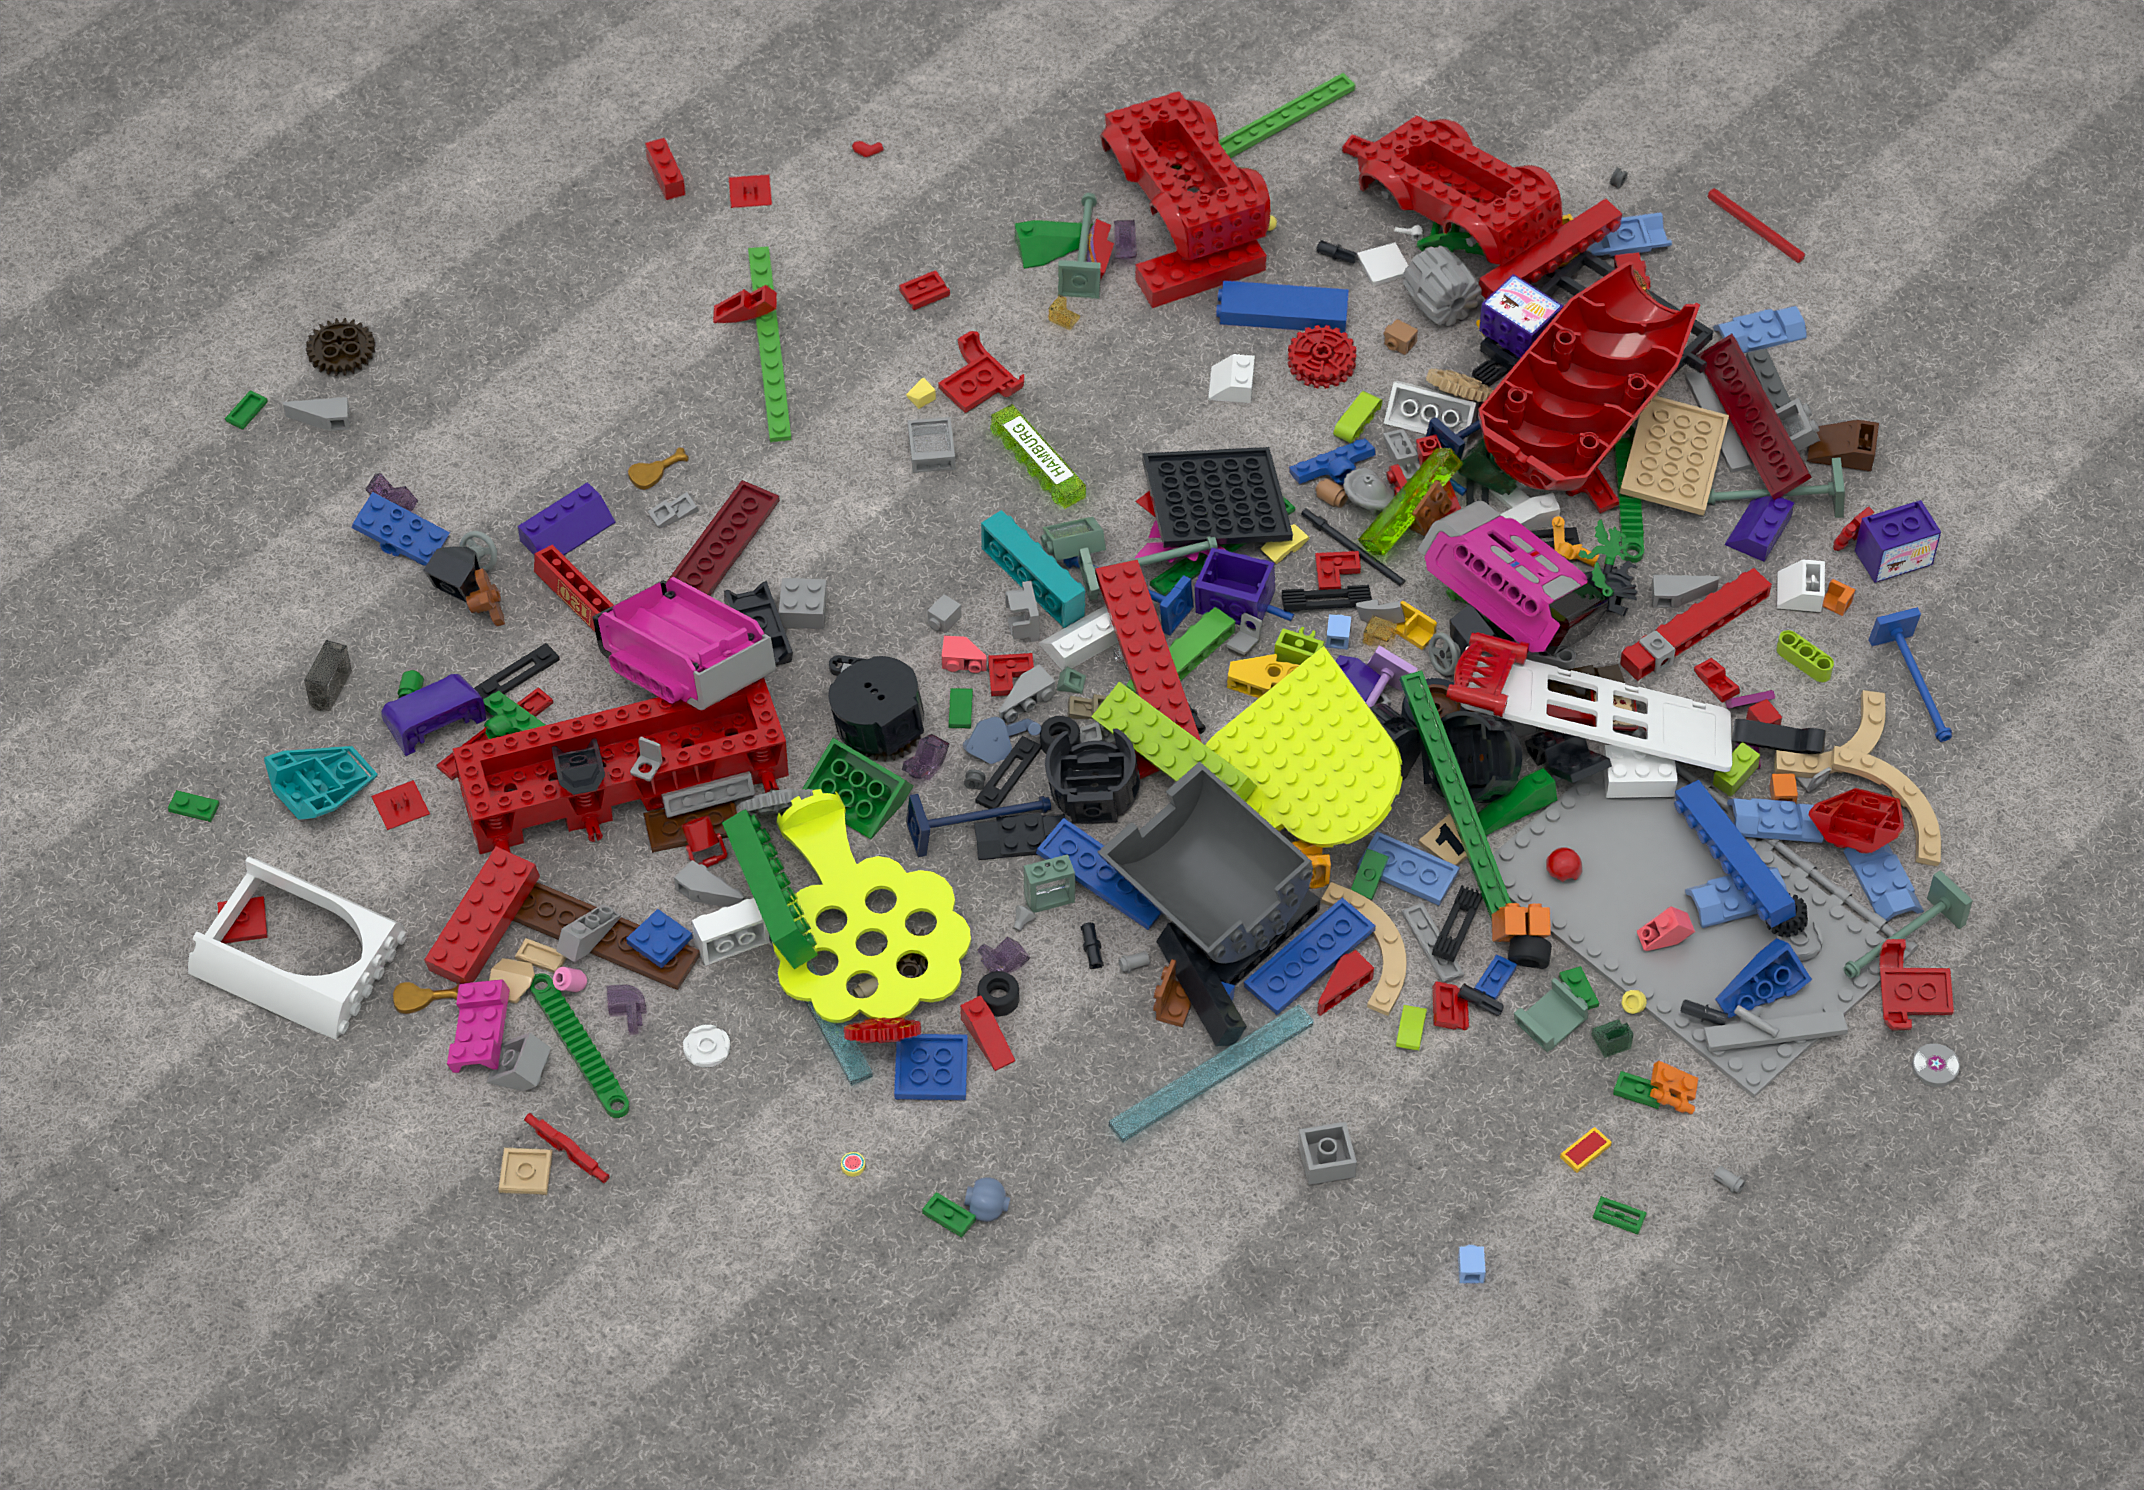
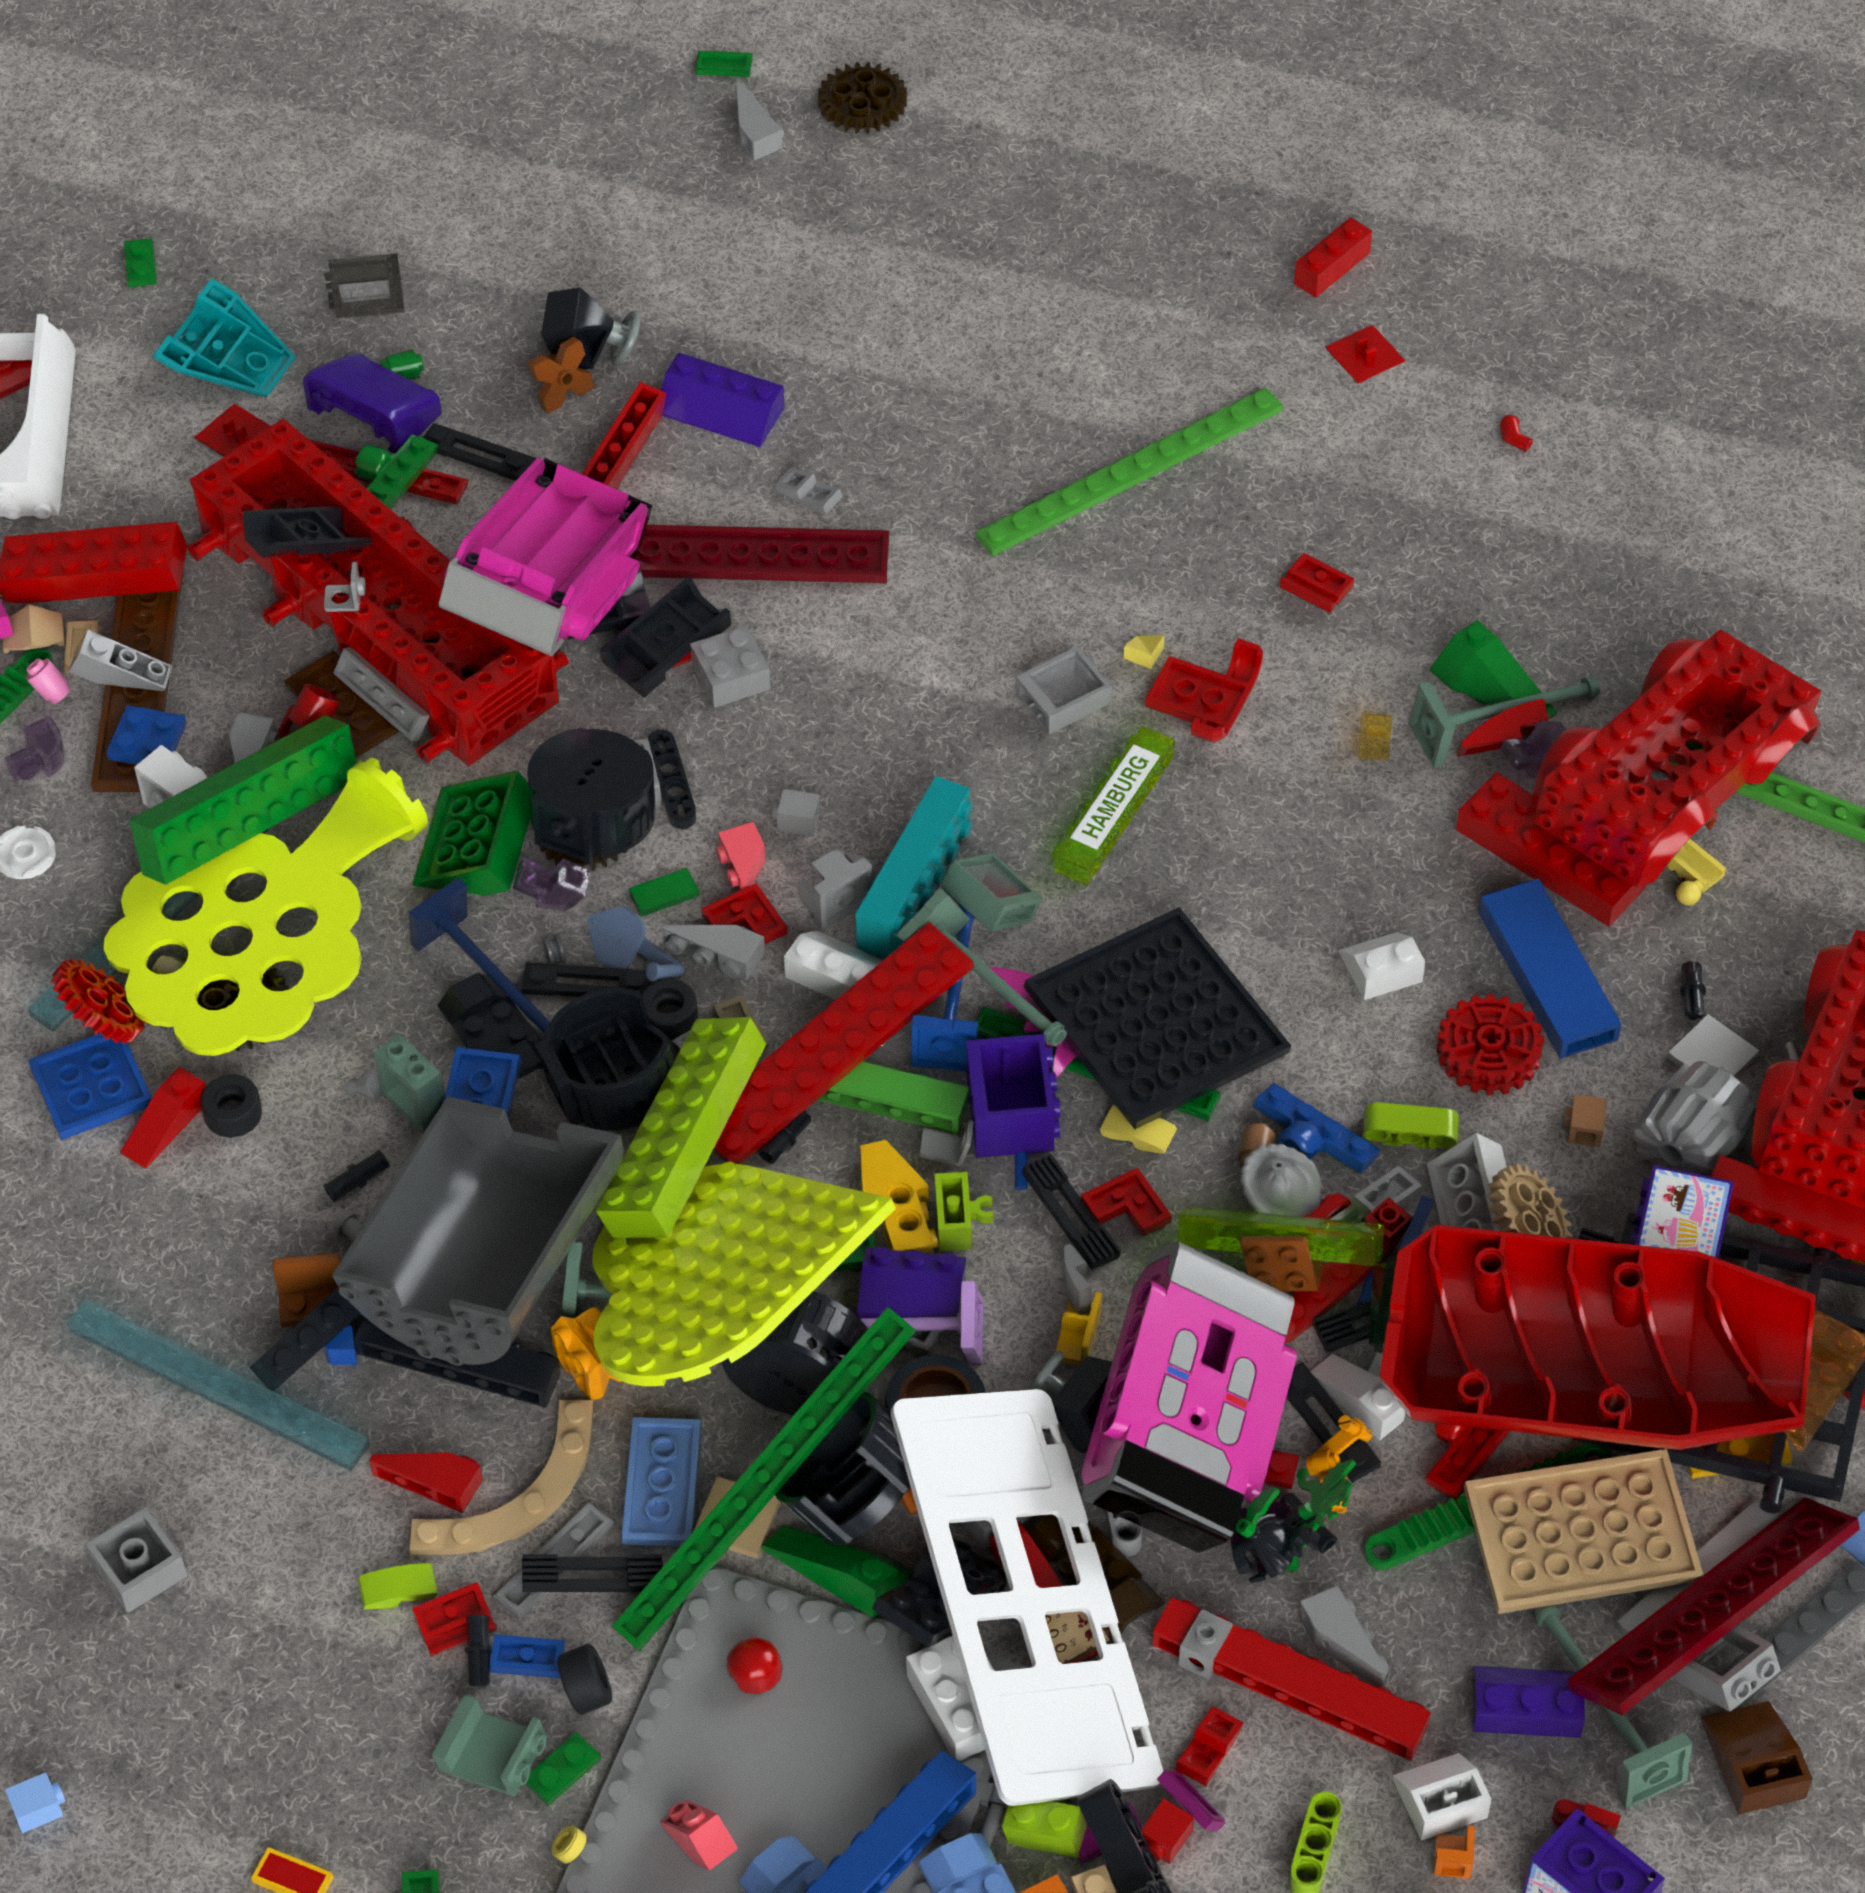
camera: 65 degrees right, 0 degrees up
(398, 495) = (662, 228): clear purple brick -> none
(399, 530) = (619, 257): blue plate -> none
(647, 475) = (849, 443): pearl gold piece -> none
(745, 305) = (1164, 420): red slope -> none
(774, 802) = (392, 756): light grey gear -> none
(1005, 957) = (284, 1089): clear purple brick -> none
(1071, 681) = (772, 990): sand green slope -> none
(1309, 956) = (455, 1420): blue plate -> none
(1321, 524) = (1198, 1159): black bar -> none
(1338, 631) = (1019, 1245): light blue brick -> none
(1369, 873) = (621, 1436): green plate -> none
(1379, 629) = (1044, 1290): clear yellow panel -> none
(1495, 676) = (914, 1425): red piece -> none
(1518, 920) = (620, 1650): orange piece -> none
(1613, 1037) = (492, 1838): clear green piece -> none

